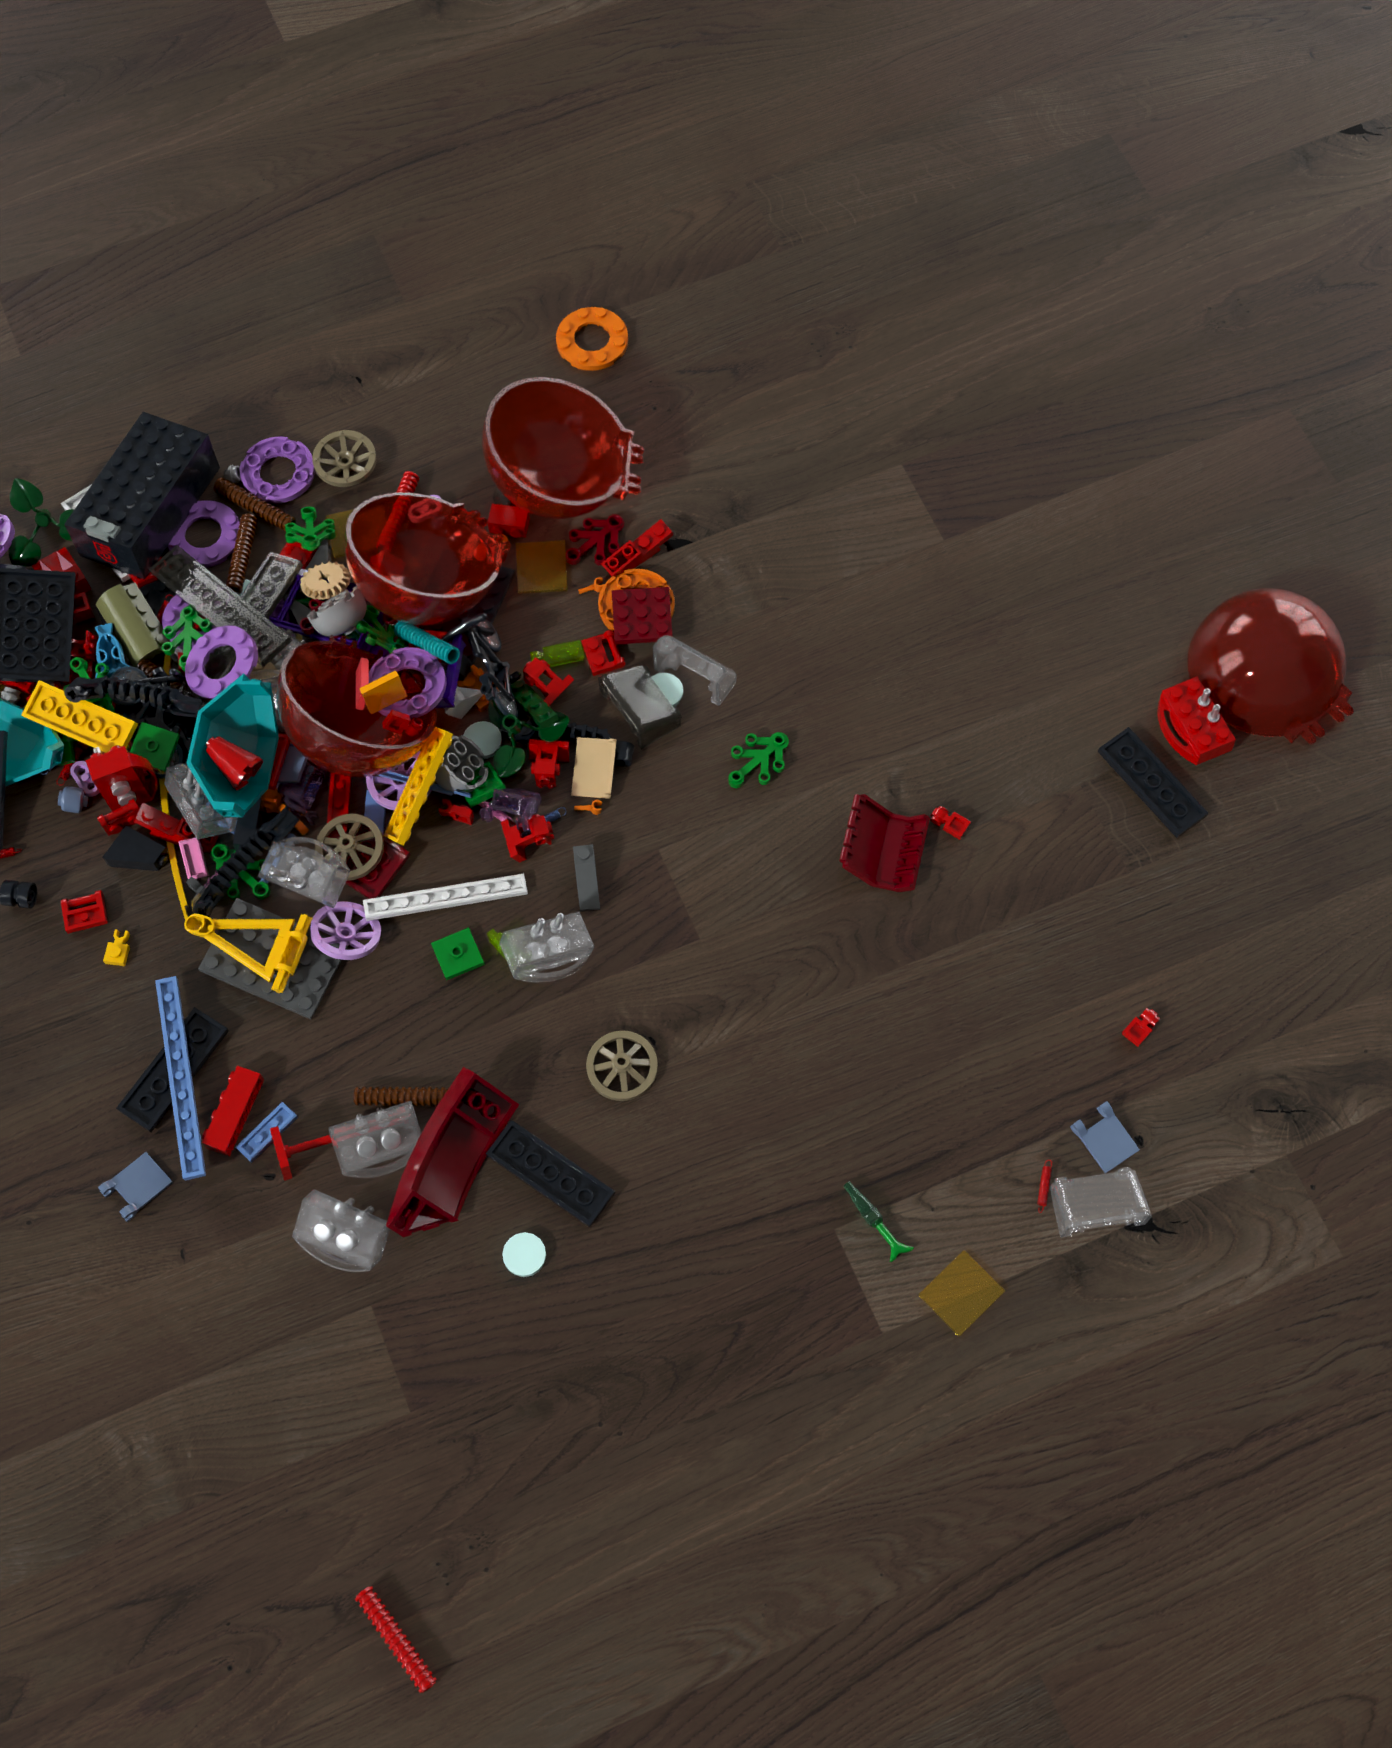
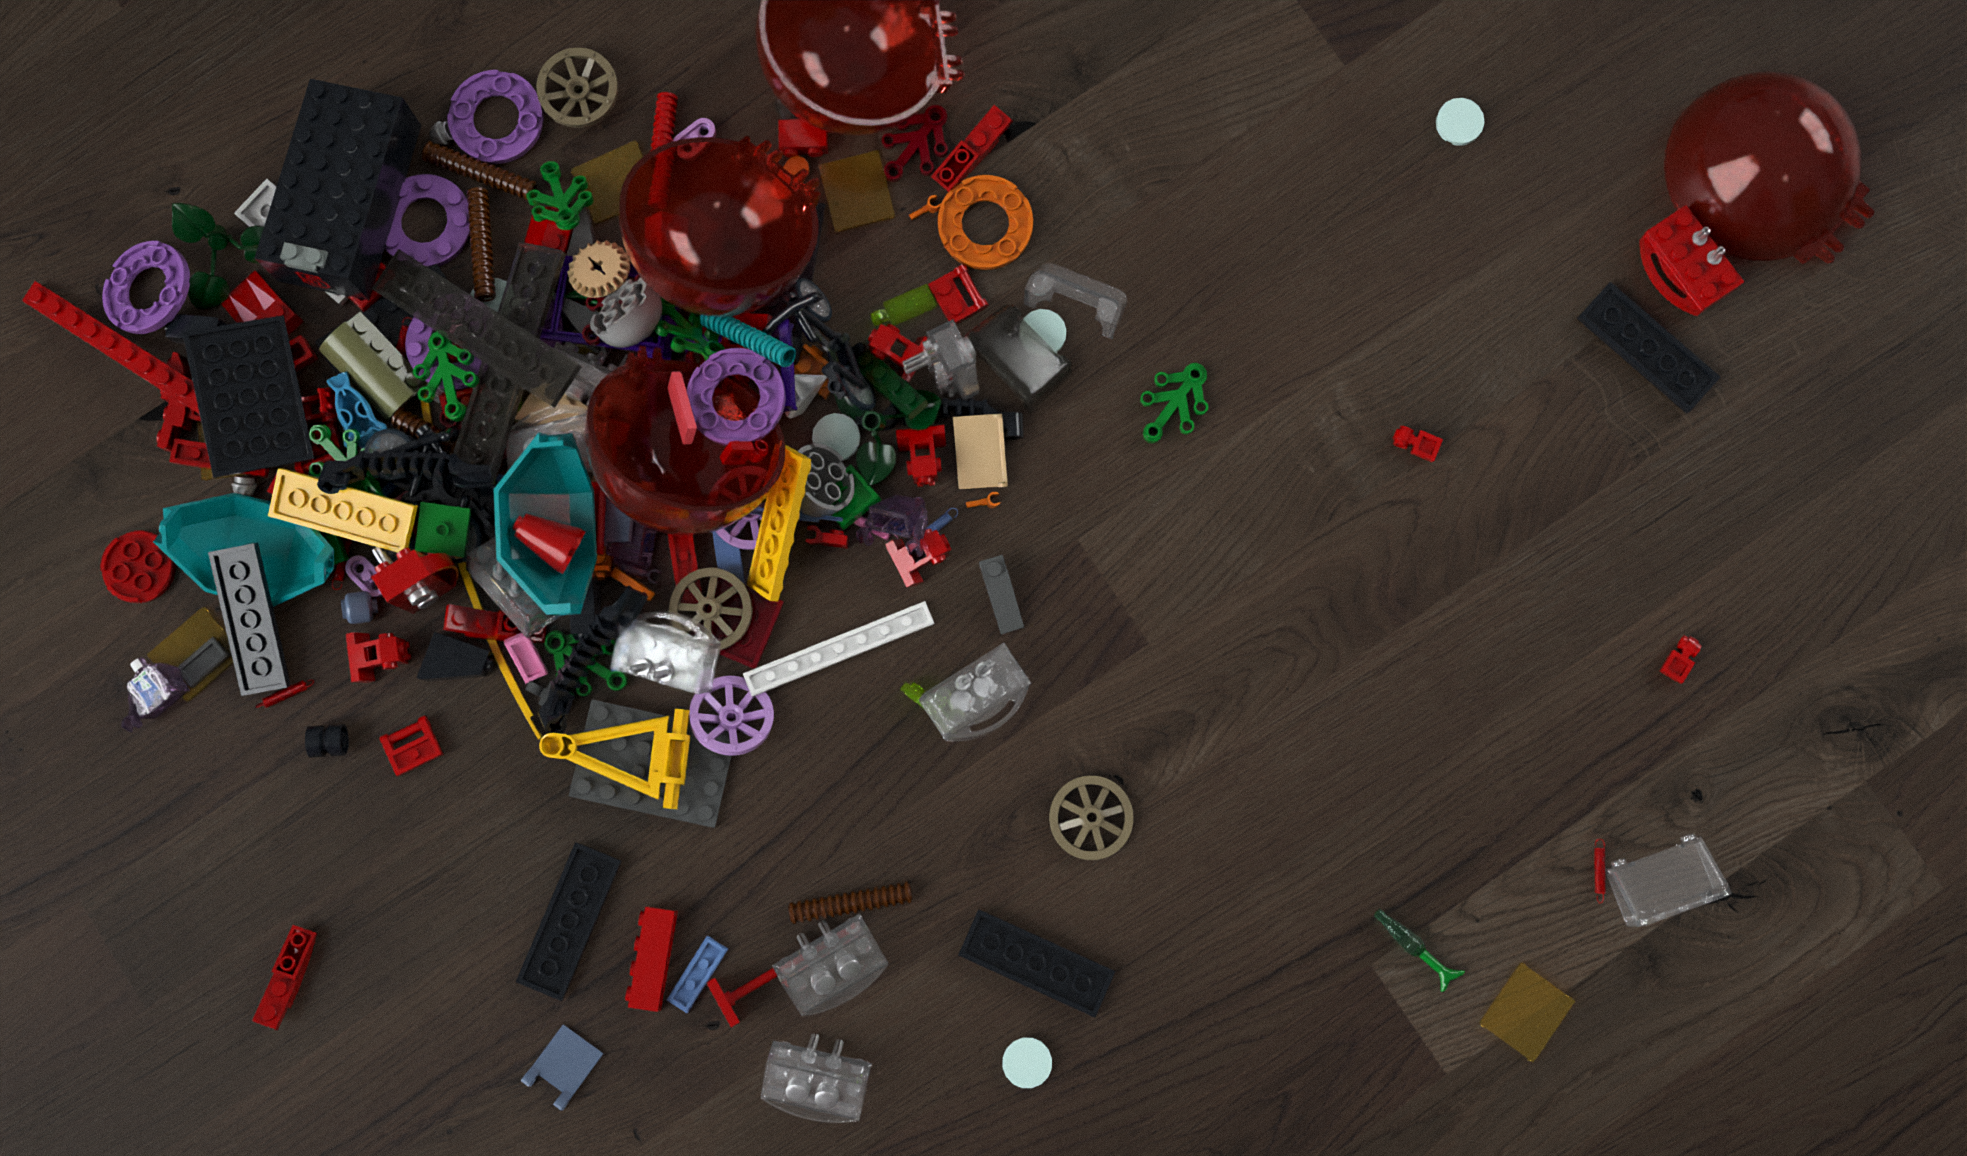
camera: 10 degrees left, 15 degrees up
(86, 835) = (389, 650): none -> red tile
(117, 952) = (464, 789): yellow plate -> none
(119, 818) = (419, 628): red plate -> none
(180, 1078) = (582, 933): medium blue plate -> none
(199, 655) = (531, 410): medium lavender plate -> none
(383, 692) = (714, 422): light orange tile -> none
(449, 1154) = (917, 967): dark red slope -> none
(457, 953) = (868, 716): green plate -> none
(581, 687) = (950, 359): none -> clear piece
(641, 615) = (997, 239): dark red plate -> none
(883, 846) = (1347, 489): dark red hinge -> none
(1028, 593) = (1460, 121): none -> light aqua tile
(1106, 1139) = (1662, 802): sand blue flag -> none

